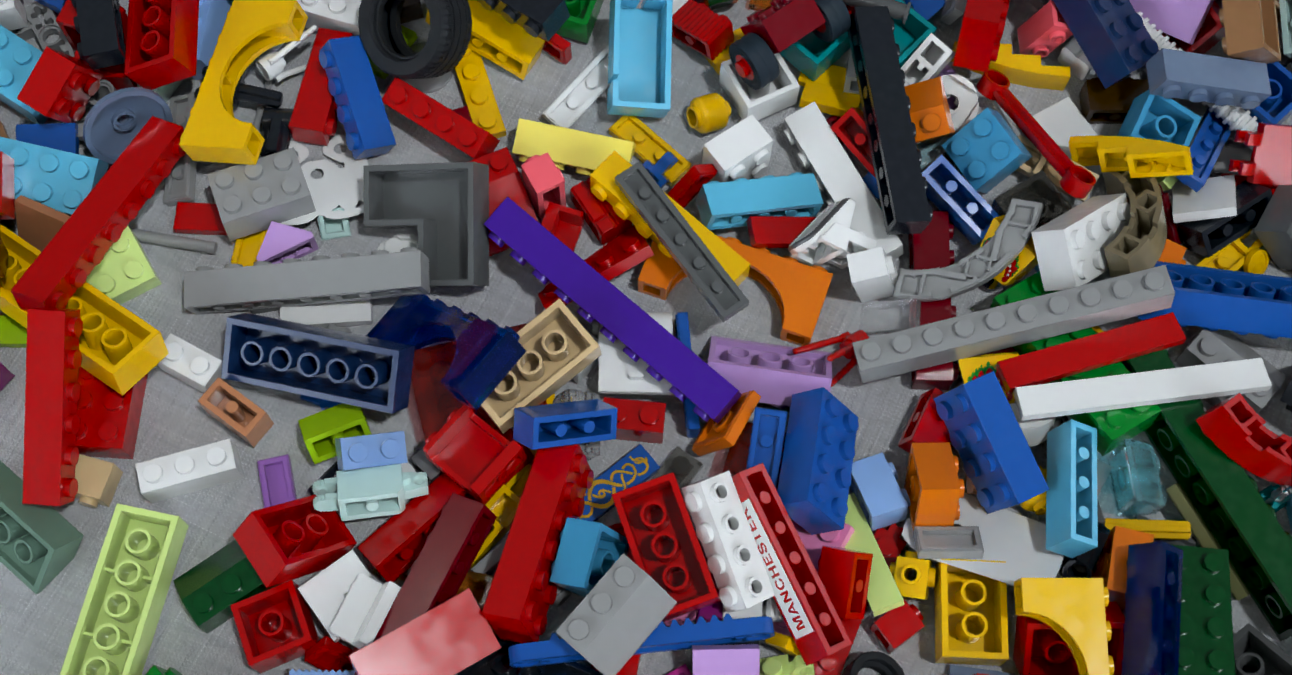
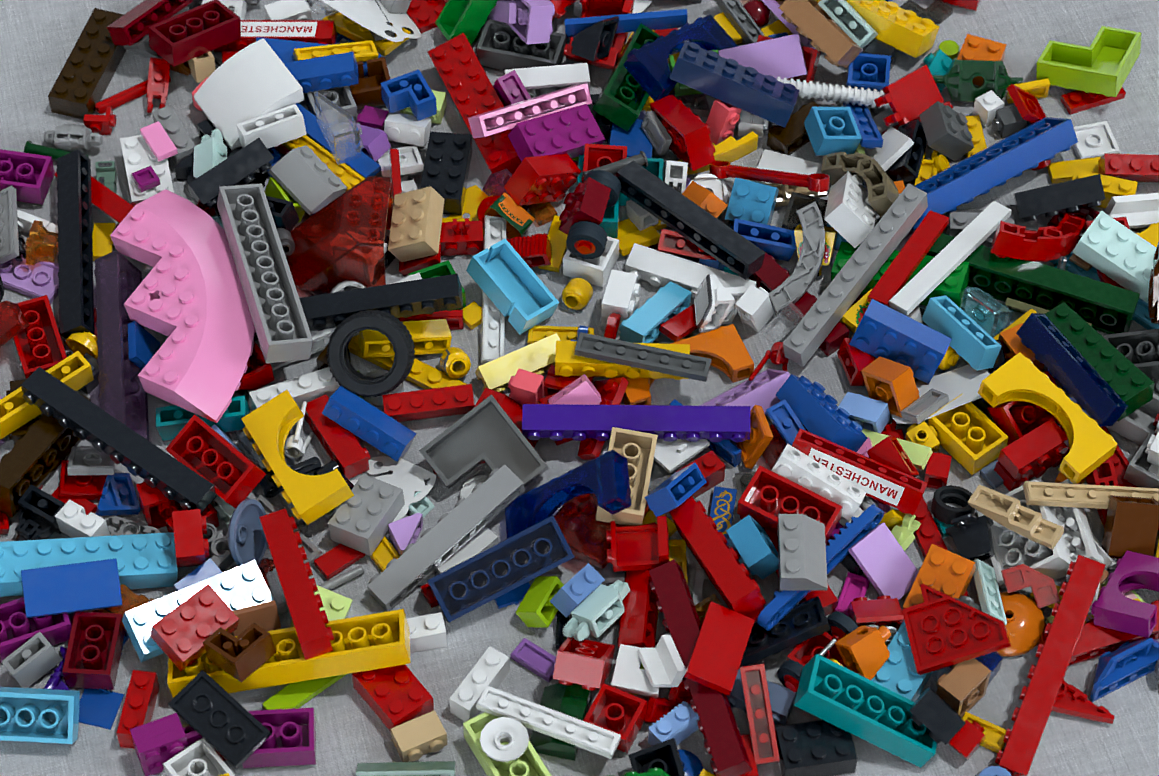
camera: 40 degrees left, 15 degrees down
(51, 406) = (381, 691): red brick -> none
(114, 550) = (503, 730): none -> white dish
(193, 578) = (549, 722): none -> white tile
(236, 412) = (475, 634): nougat brick -> none
(512, 95) = (455, 362): none -> yellow head
(582, 230) = (577, 393): none -> bright pink brick
(583, 54) = (472, 315): none -> yellow tile
(1132, 154) = (836, 147): yellow slope -> none
(1208, 78) = (836, 83): sand blue brick -> none

